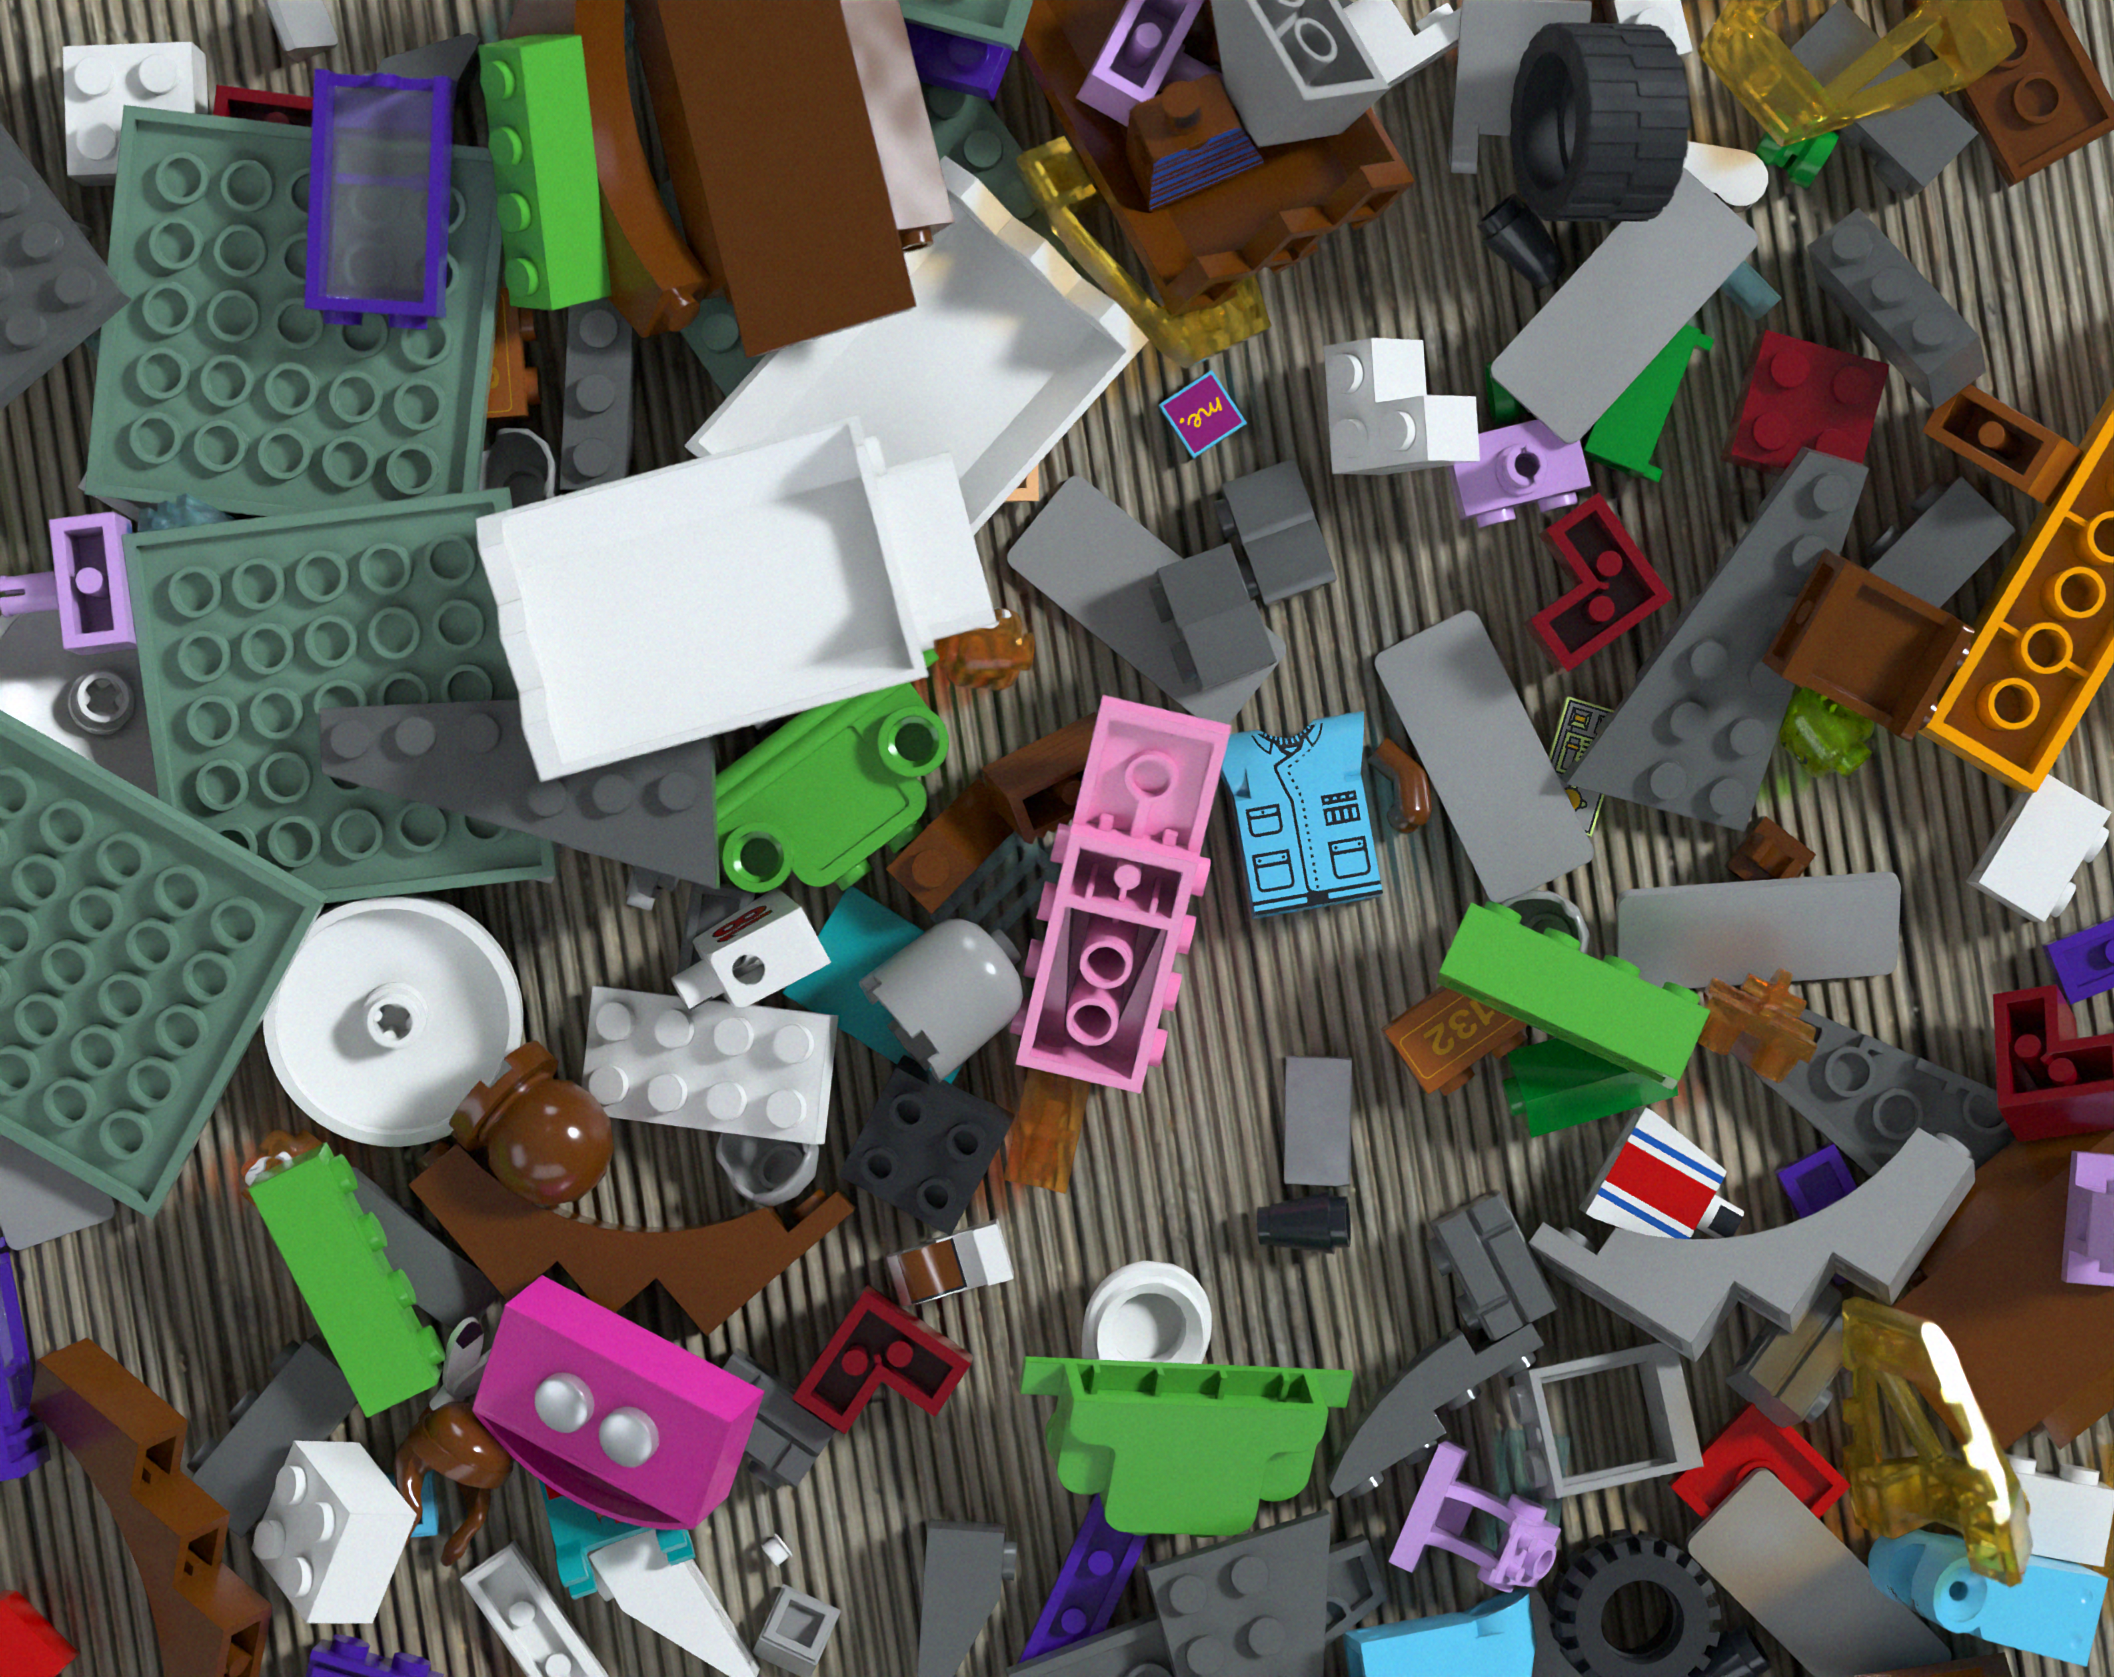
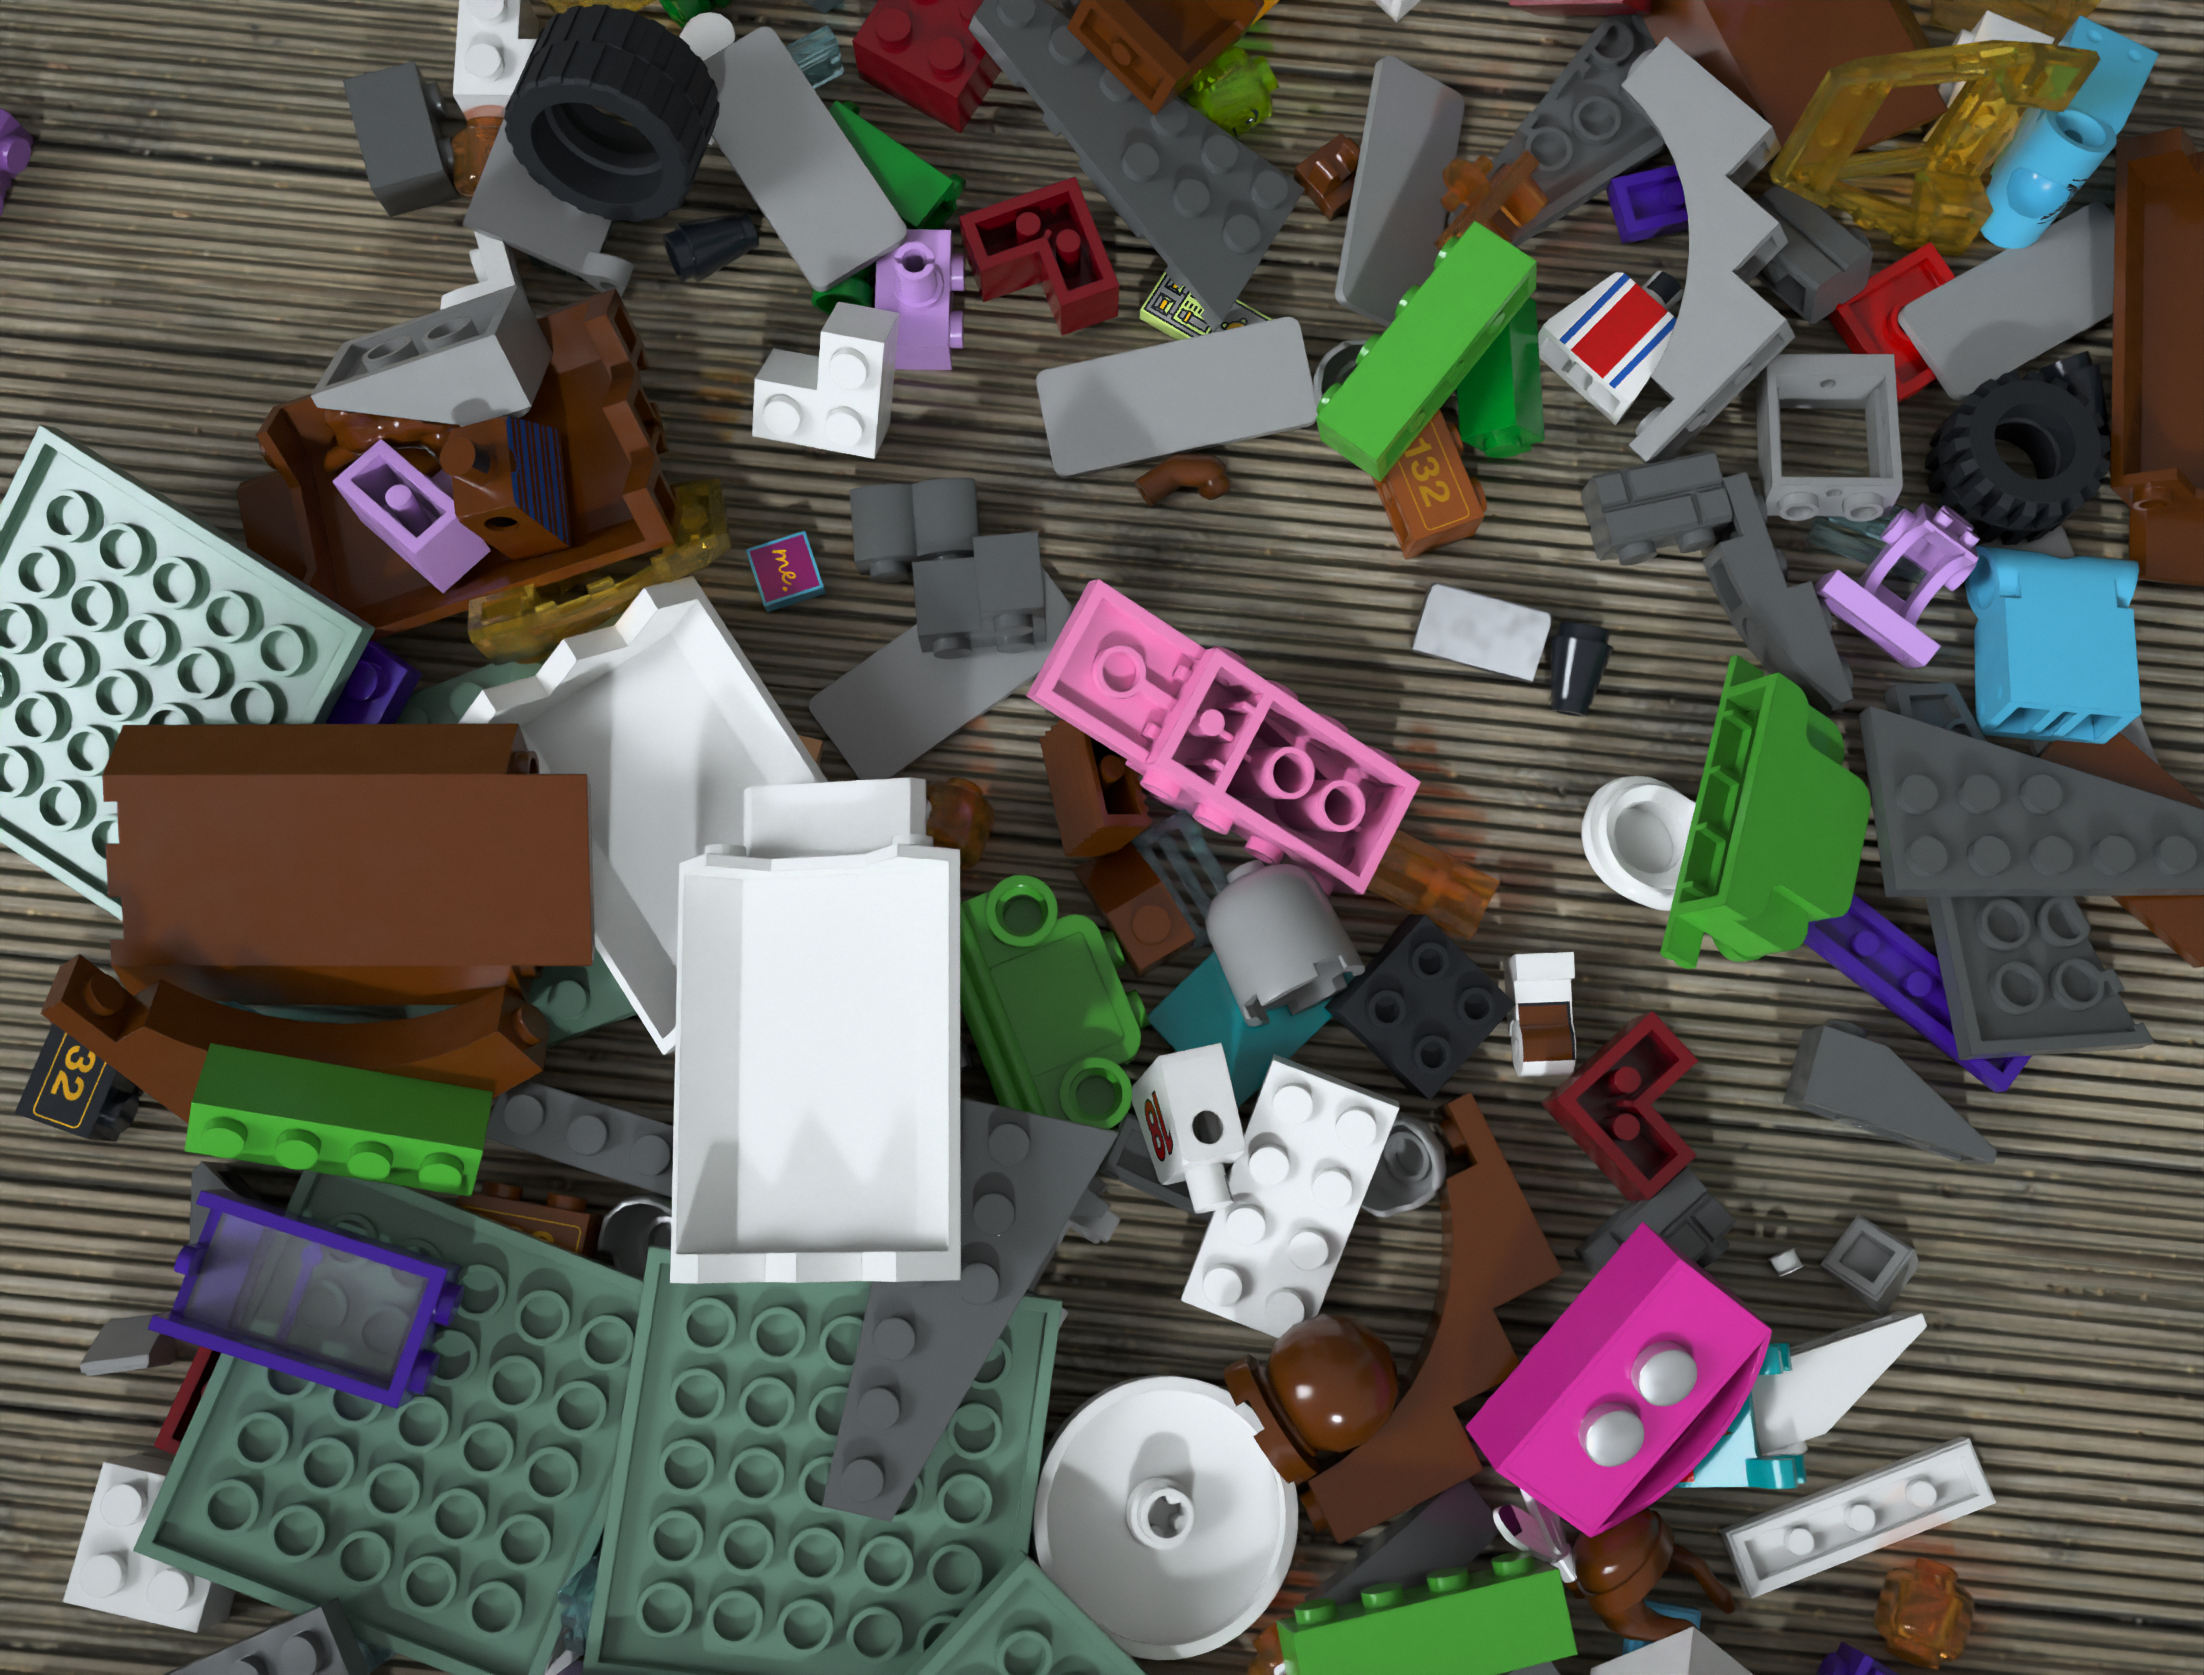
camera: 80 degrees left, 10 degrees down
(1302, 816) = (1198, 563): medium azure piece -> none

